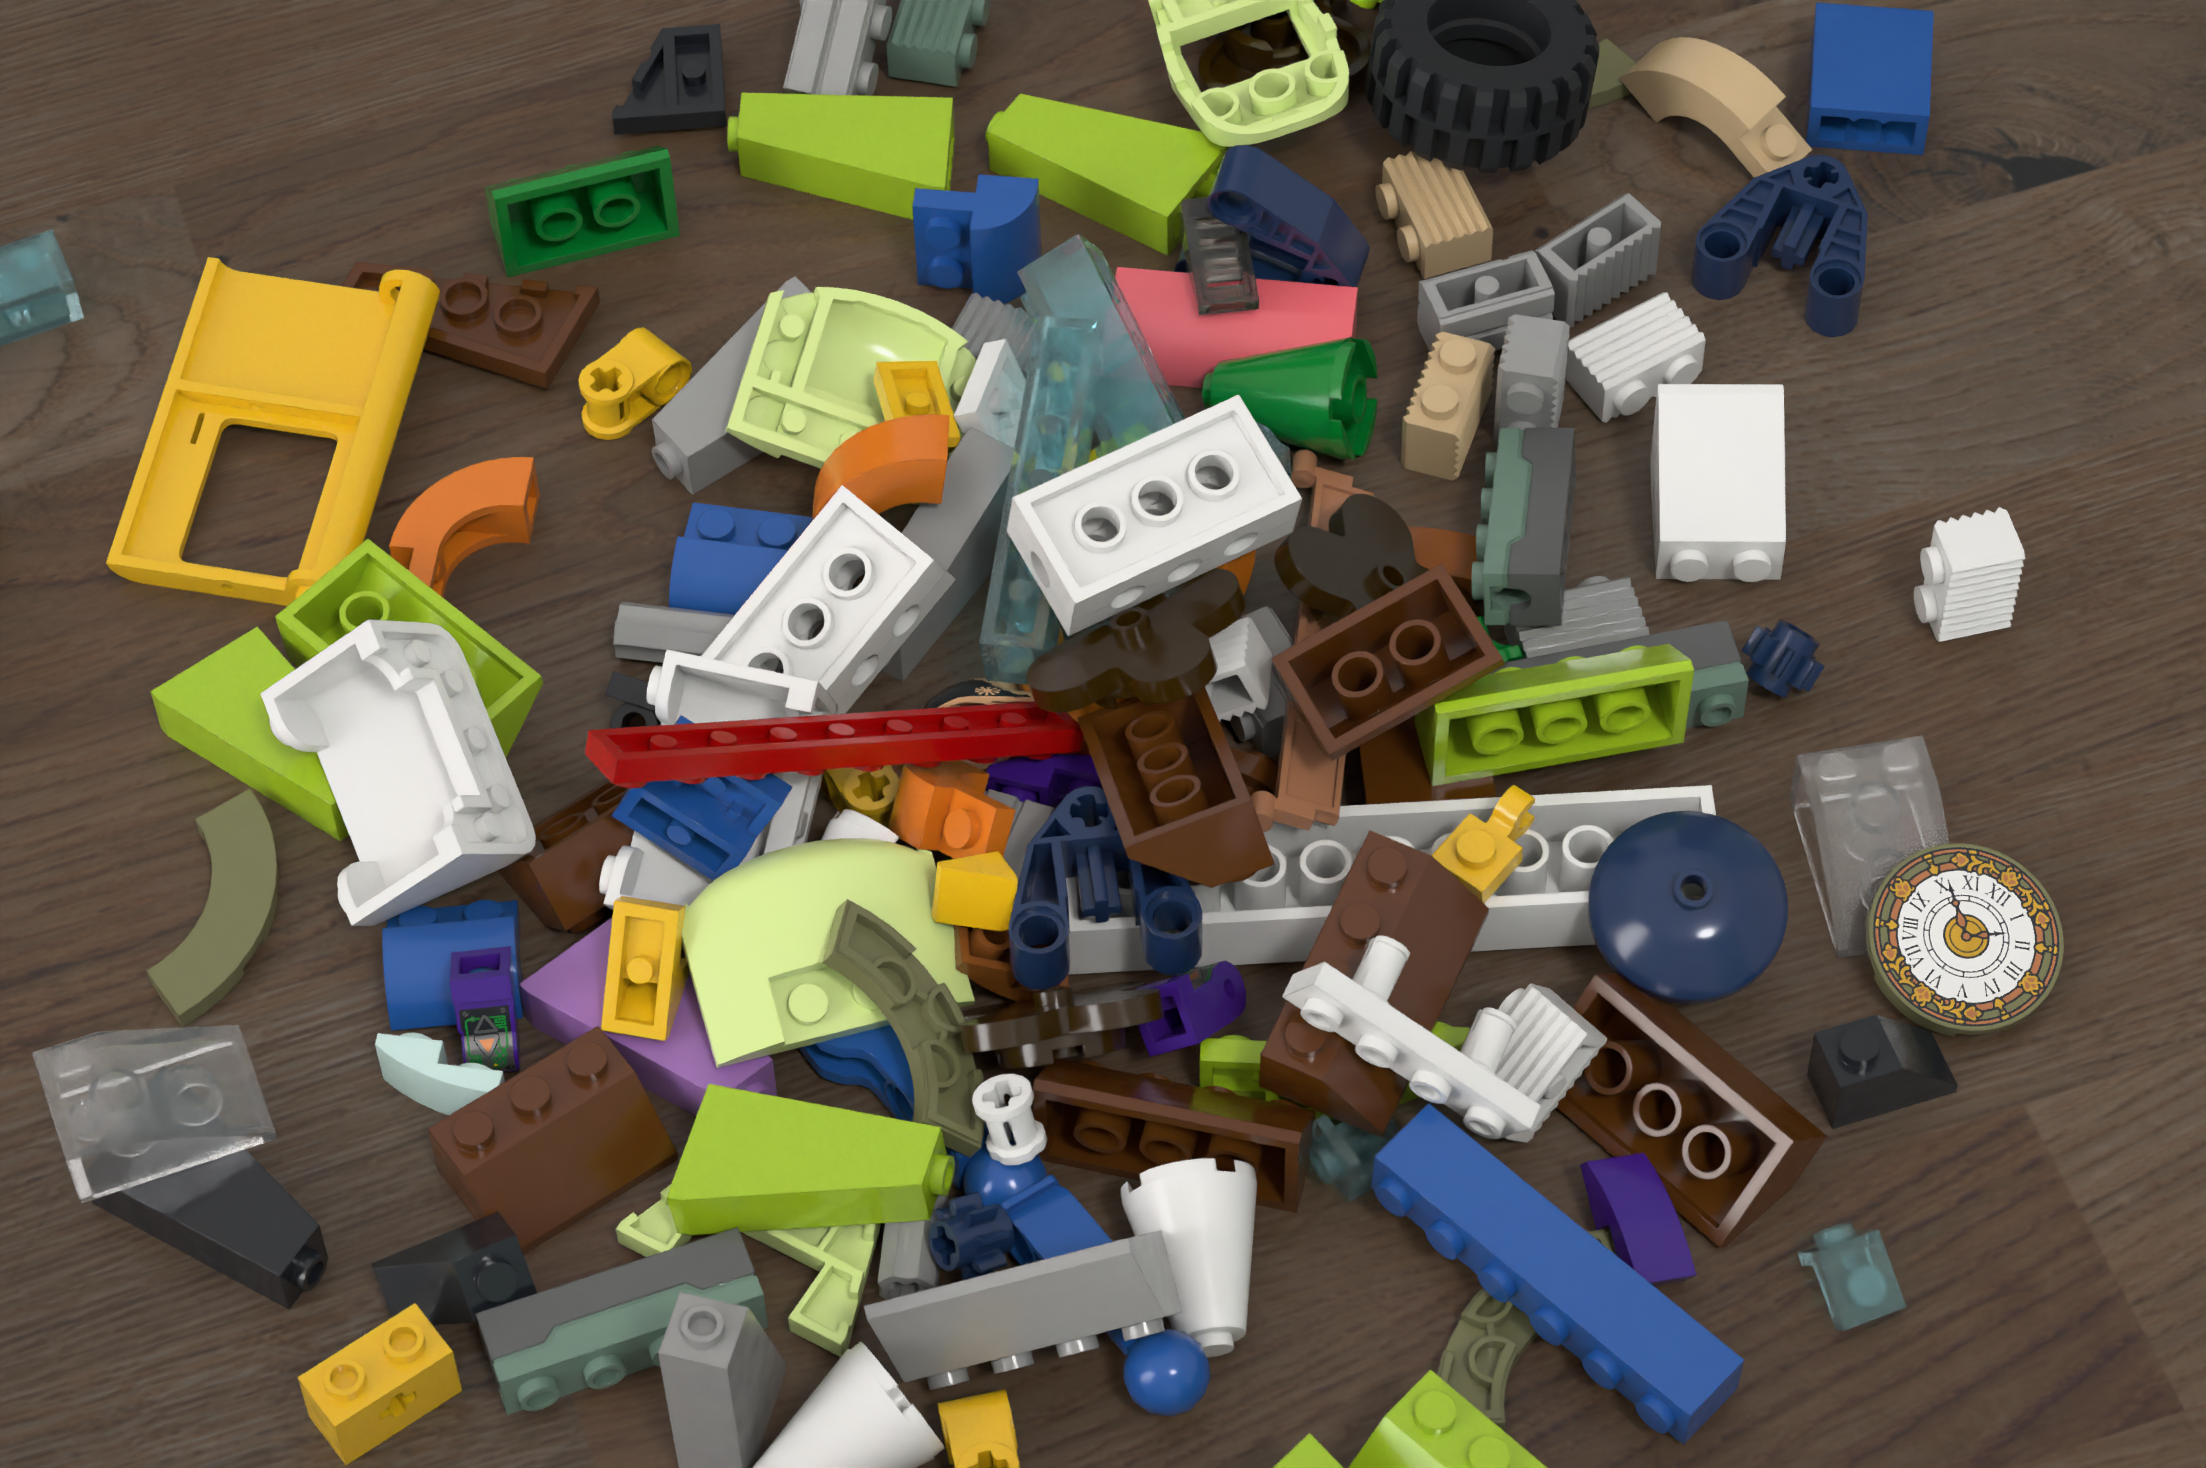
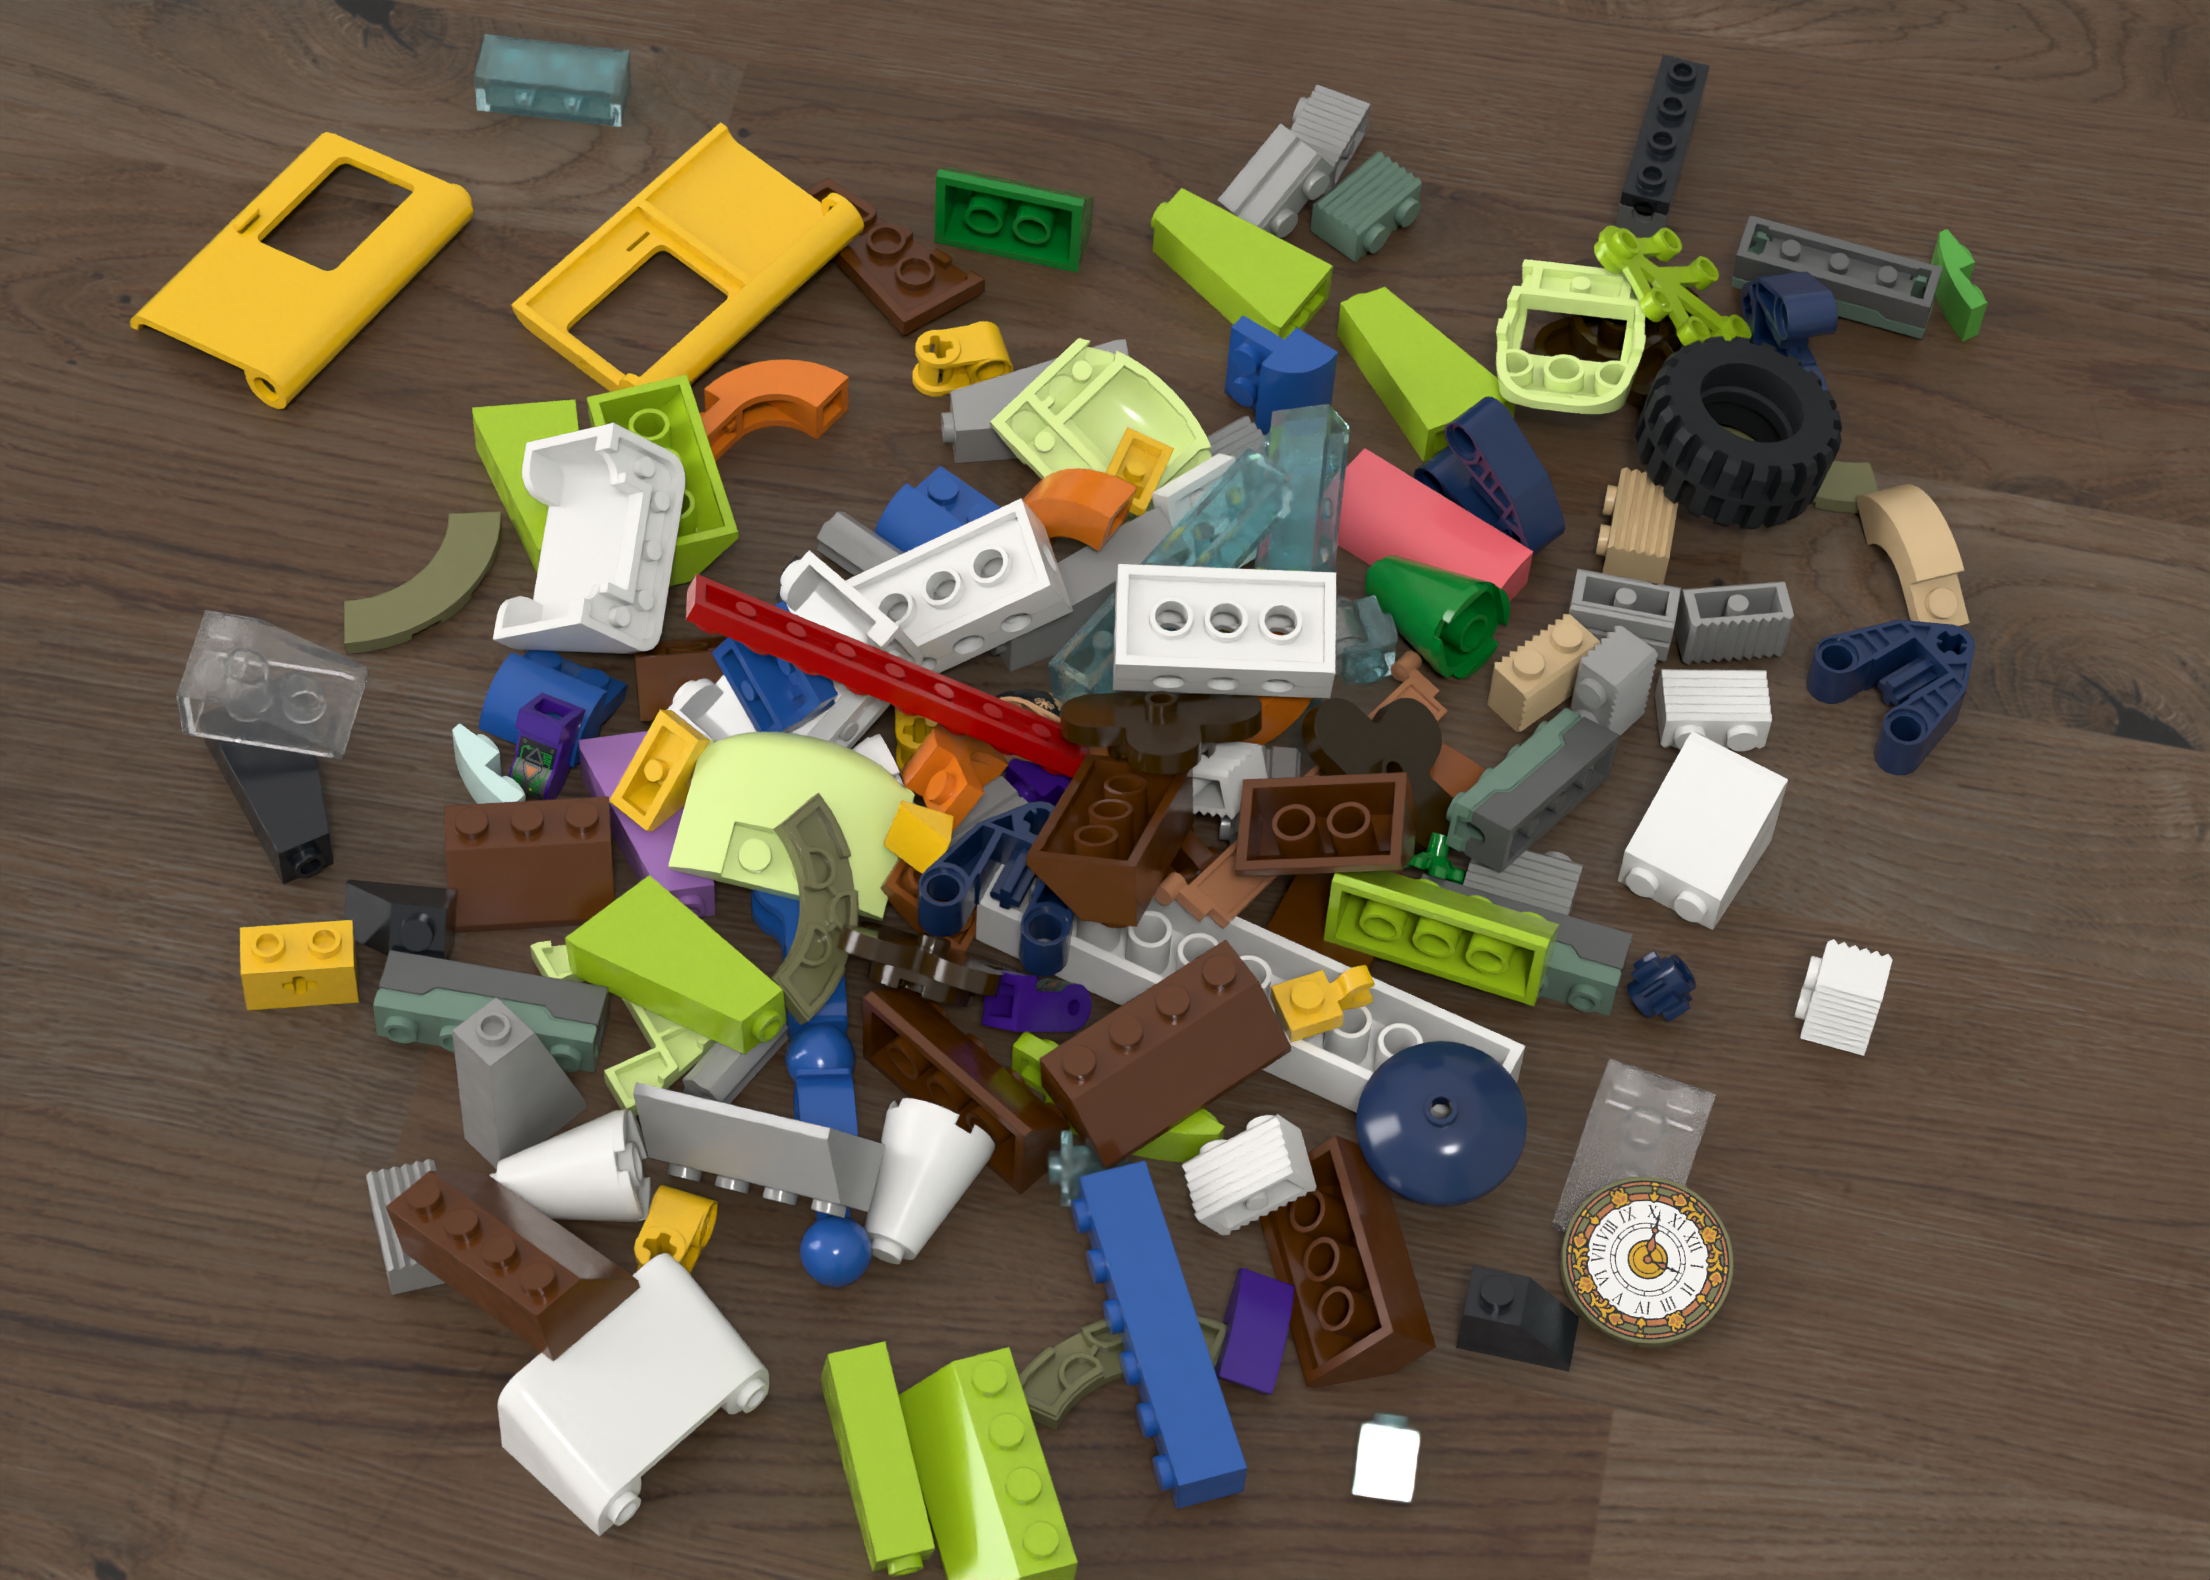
camera: 25 degrees right, 0 degrees up
(678, 84) = (1149, 161): black wing -> none
(971, 1236) = (763, 1080): dark blue gear -> none
(1014, 1118) = (837, 1011): white bush -> none
(1216, 255) = (1425, 510): clear smoke slope -> none
(1391, 1040) = (1131, 1093): white plate -> none
(1870, 78) = (2052, 591): blue brick -> none

